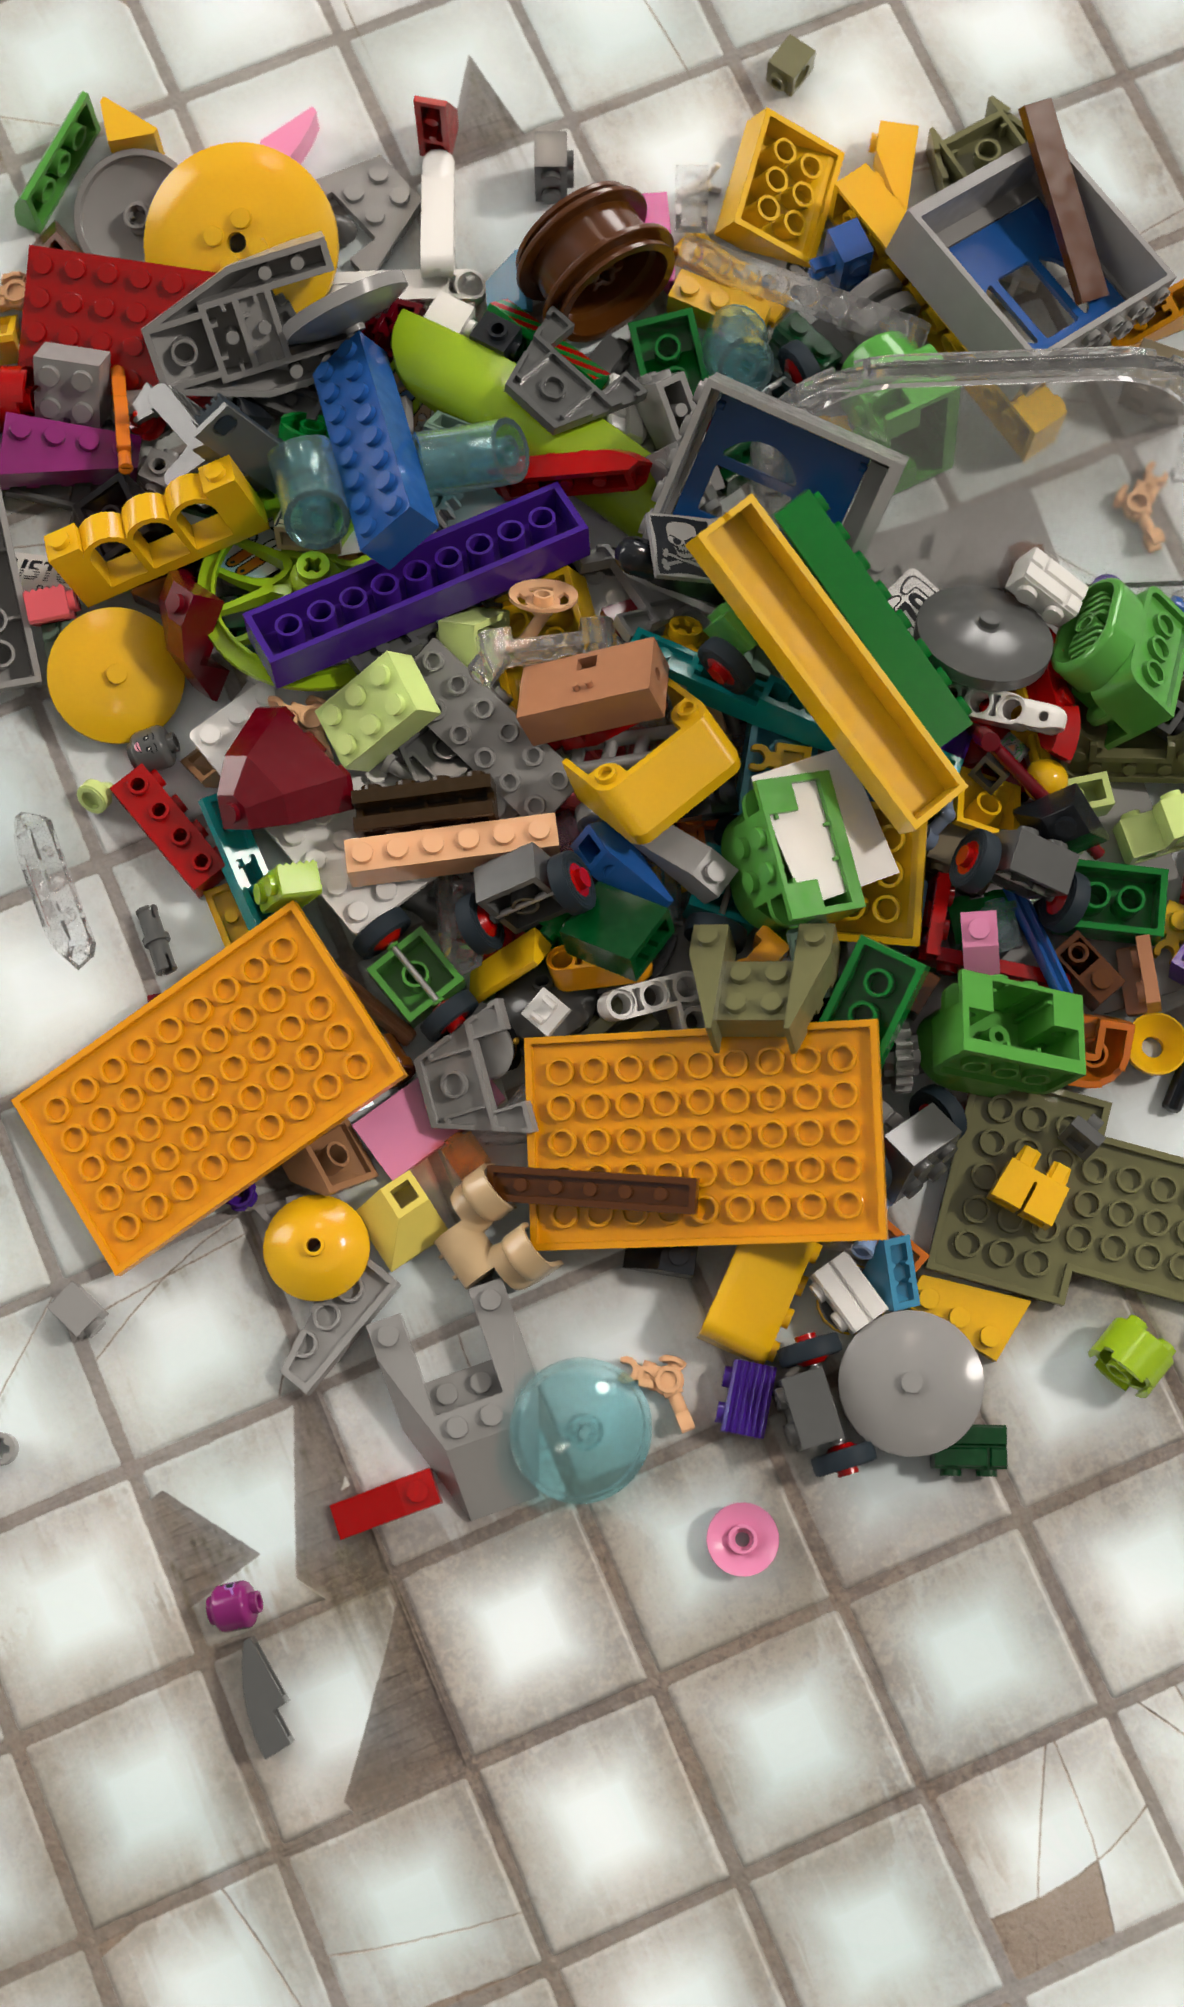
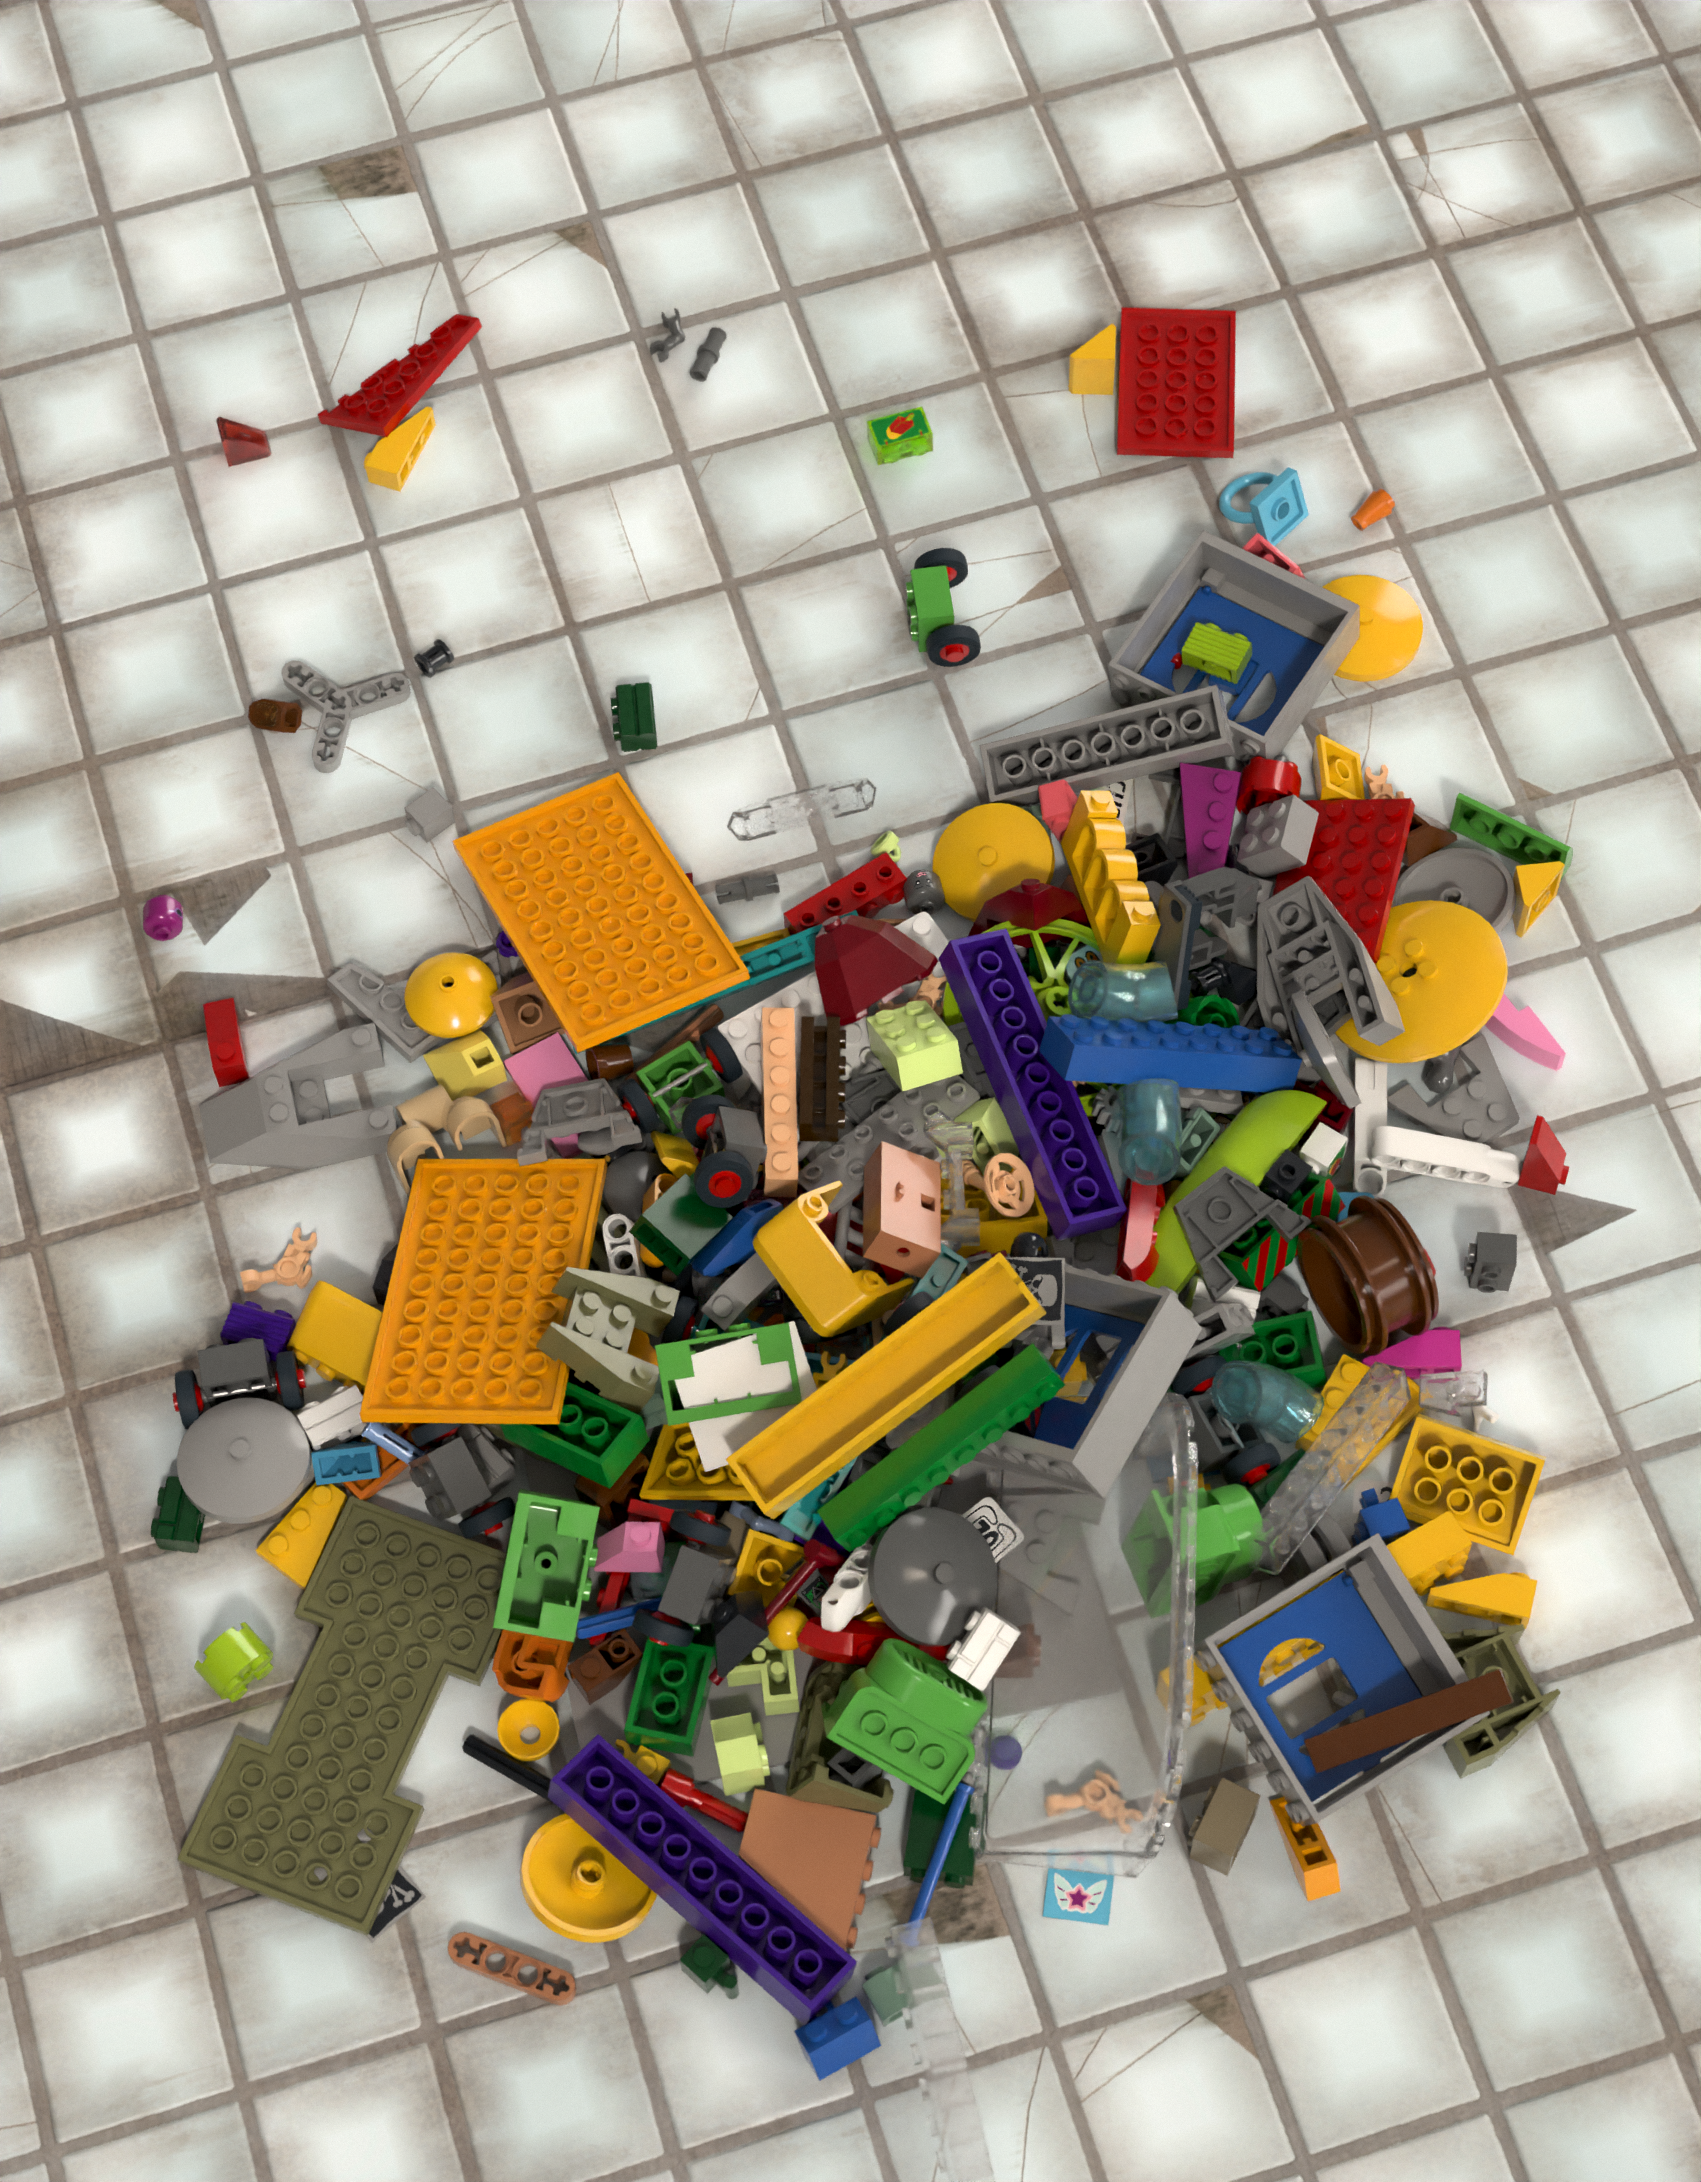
camera: 100 degrees right, 15 degrees down
(121, 420) = (1208, 861): orange piece -> none
(262, 1699) = (84, 935): dark grey slope -> none
(288, 883) = (765, 972): lime brick -> none
(546, 1012) = (625, 1177): white tile -> none
(580, 1430) = (255, 1189): clear light blue dish -> none
(595, 1189) = (455, 1199): reddish brown plate -> none
(762, 1541) = (137, 1303): bright pink dish -> none
(790, 65) = (1610, 1506): olive brick -> none
(903, 1061) = (543, 1477): light grey gear -> none
(1047, 1191) = (402, 1586): yellow hips -> none
(1083, 1136) = (447, 1642): dark grey tile -> none
(1138, 970) = (590, 1719): nougat bracket -> none

